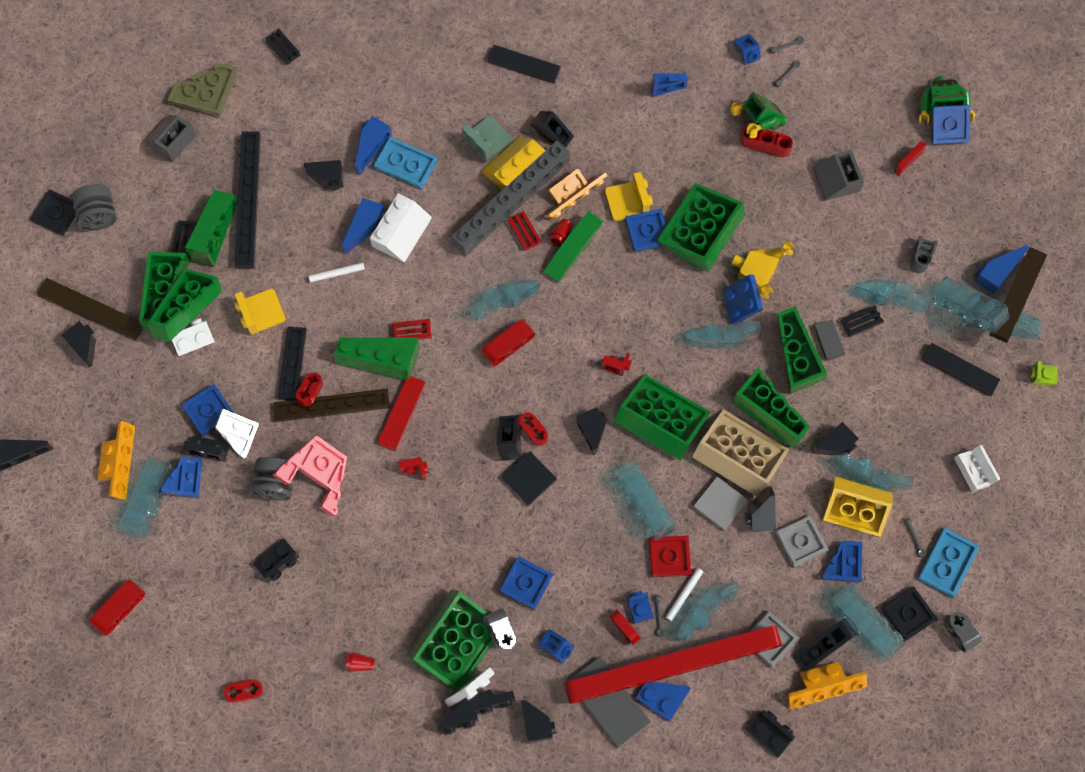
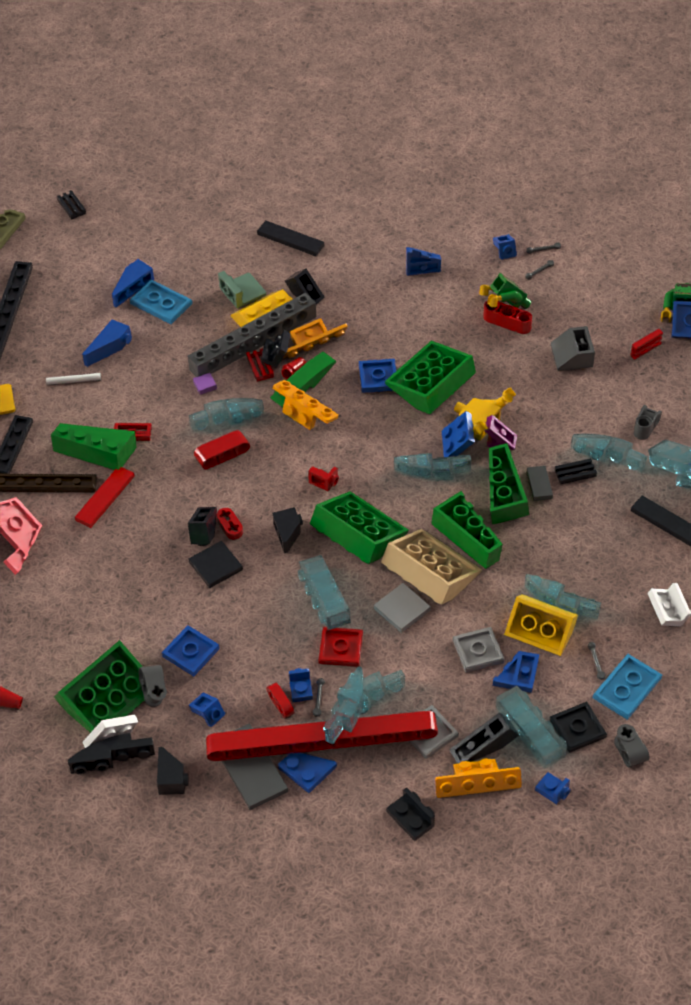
camera: 10 degrees right, 20 degrees down
(306, 388) = (21, 465): red beam -> none
(326, 173) = (84, 300): black slope -> none
(400, 228) = (141, 348): white slope -> none
(411, 465) = (102, 538): red bracket -> none
(473, 261) = (204, 383): none -> medium lavender tile
(539, 213) = (274, 351): none -> black bracket
(581, 281) = (302, 406): none -> light orange bracket
(629, 198) = (365, 348): yellow bracket -> none
(684, 594) = (333, 694): white bar -> none
(698, 628) = (349, 708): none -> clear light blue slope
(762, 511) = (440, 614): black slope -> none
(783, 289) = (499, 433): none -> magenta slope
(837, 442) = (531, 563): black slope -> none
(897, 684) = (553, 788): none -> blue bracket

